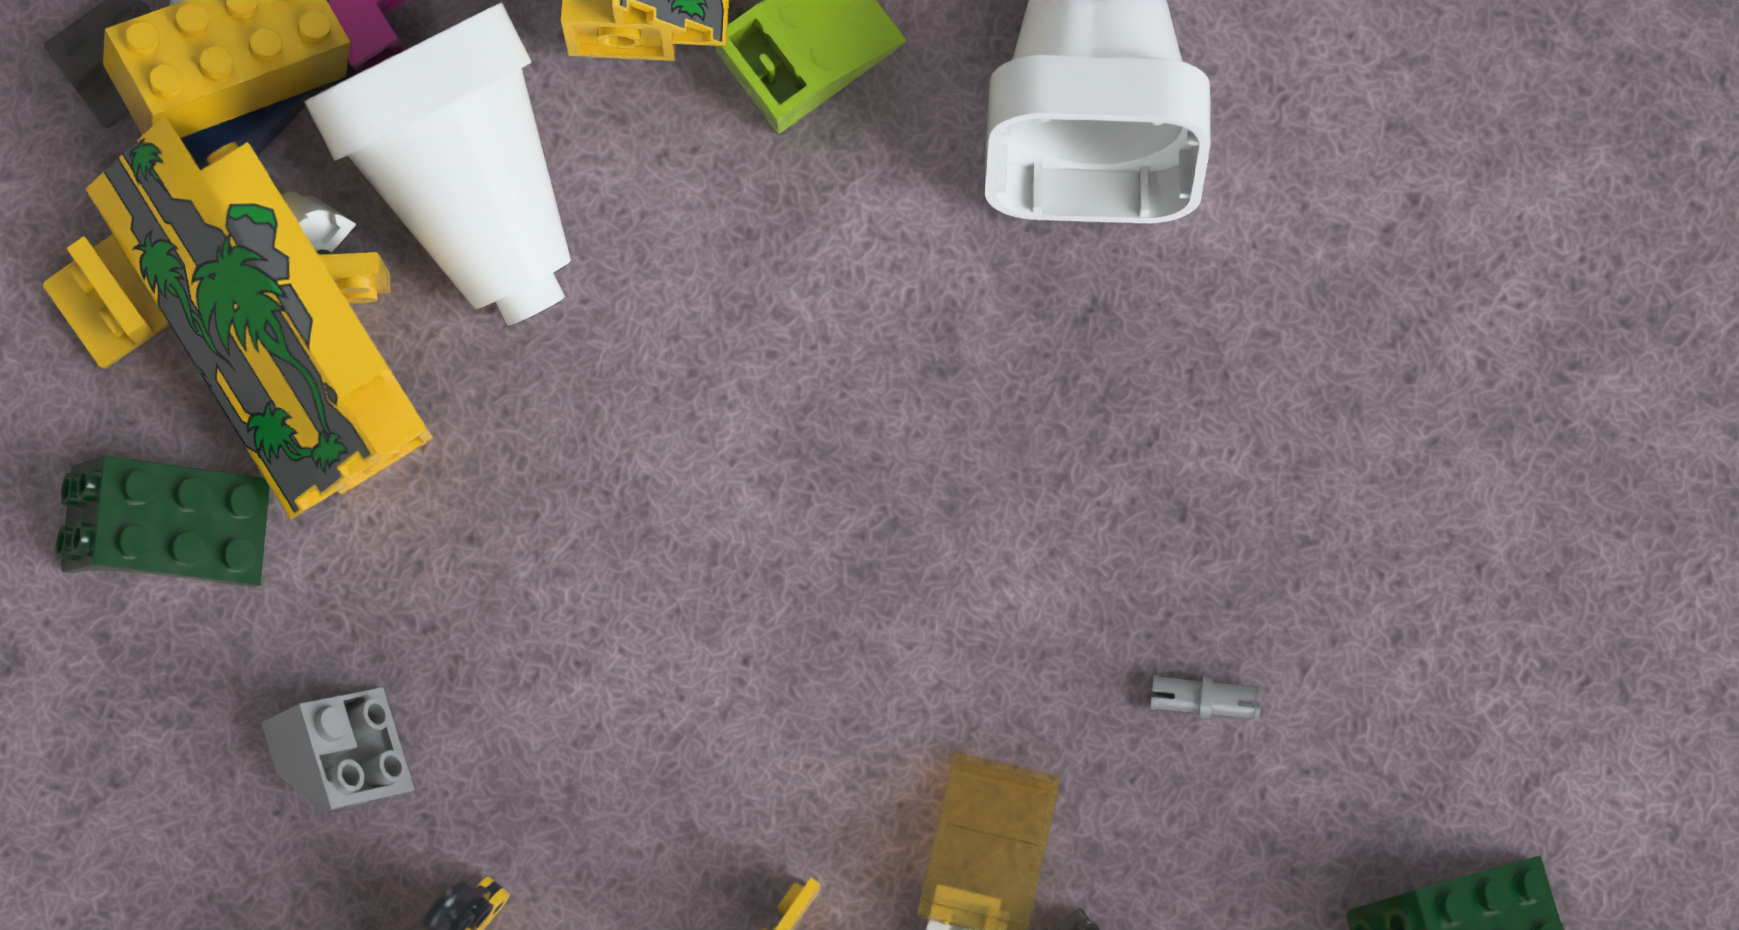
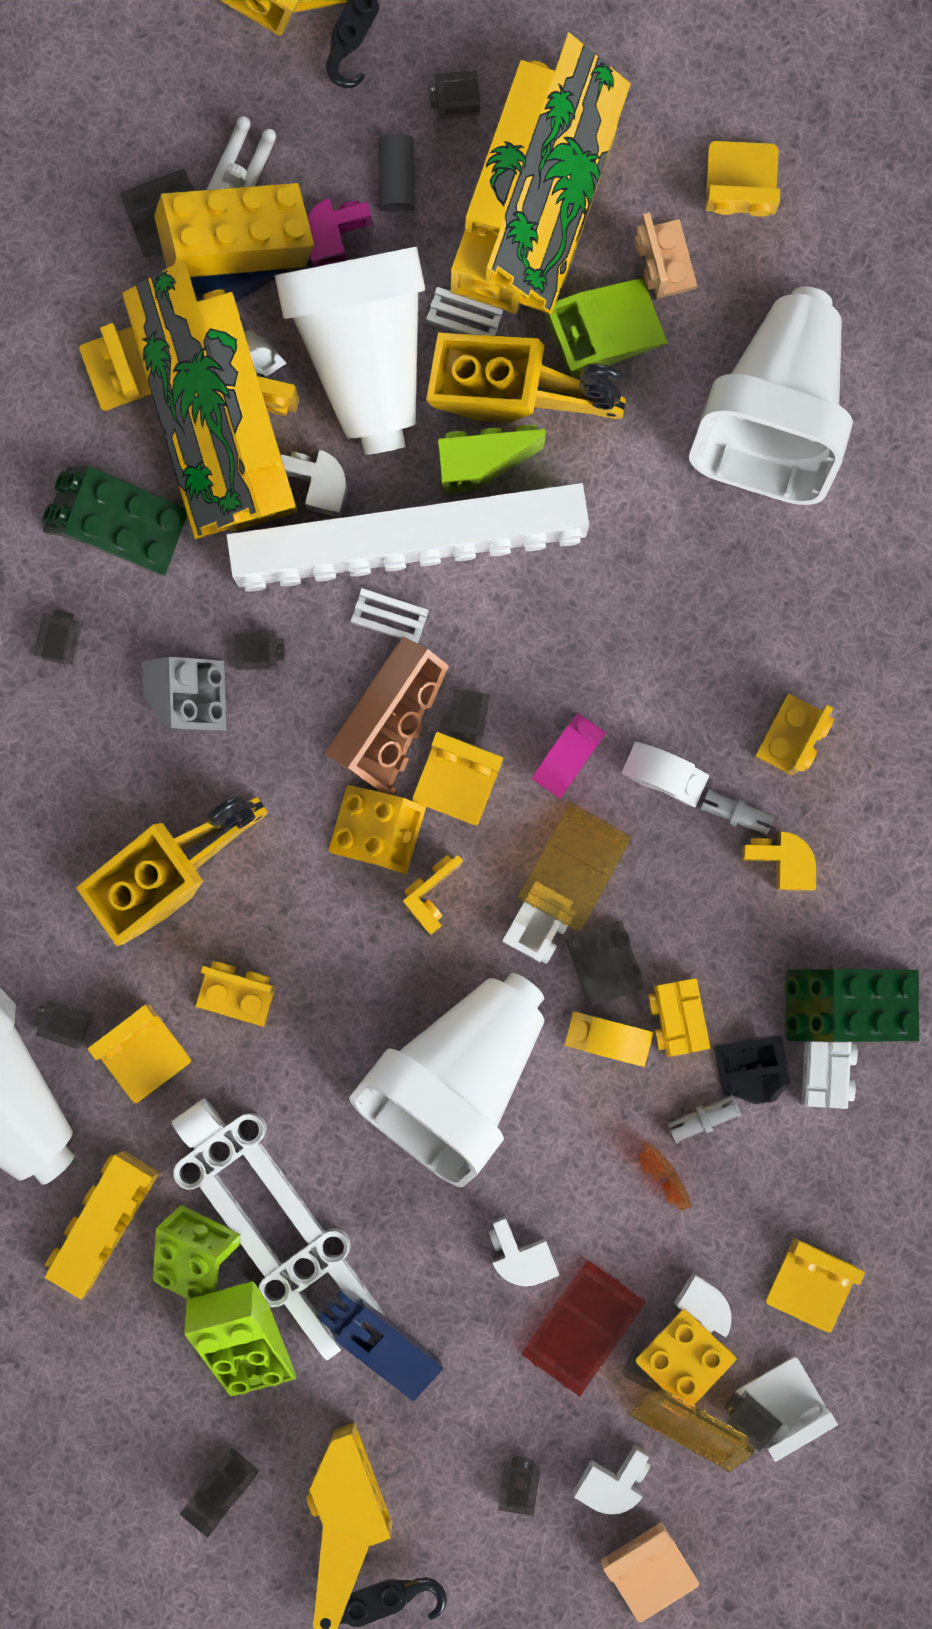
camera: 15 degrees right, 5 degrees up
(126, 723) = (58, 638): none -> clear smoke brick
(430, 658) = (258, 651): none -> clear smoke bracket
(464, 383) = (328, 482): none -> white brick
(564, 550) = (361, 606): none -> white tile
(598, 103) = (436, 304): none -> white tile
(605, 428) = (408, 536): none -> white brick
(650, 701) = (389, 716): none -> nougat wedge
(676, 162) = (500, 377): none -> yellow slope
(676, 288) = (477, 460): none -> lime slope
(679, 873) = (377, 828): none -> yellow bracket
(768, 667) = (468, 715): none -> clear smoke brick
(778, 765) = (457, 779): none -> yellow bracket
(933, 684) = (568, 755): none -> dark pink brick
(1083, 670) = (665, 773): none -> white brick
(1256, 559) = (793, 734): none -> yellow bracket
(1310, 745) = (793, 860): none -> yellow brick

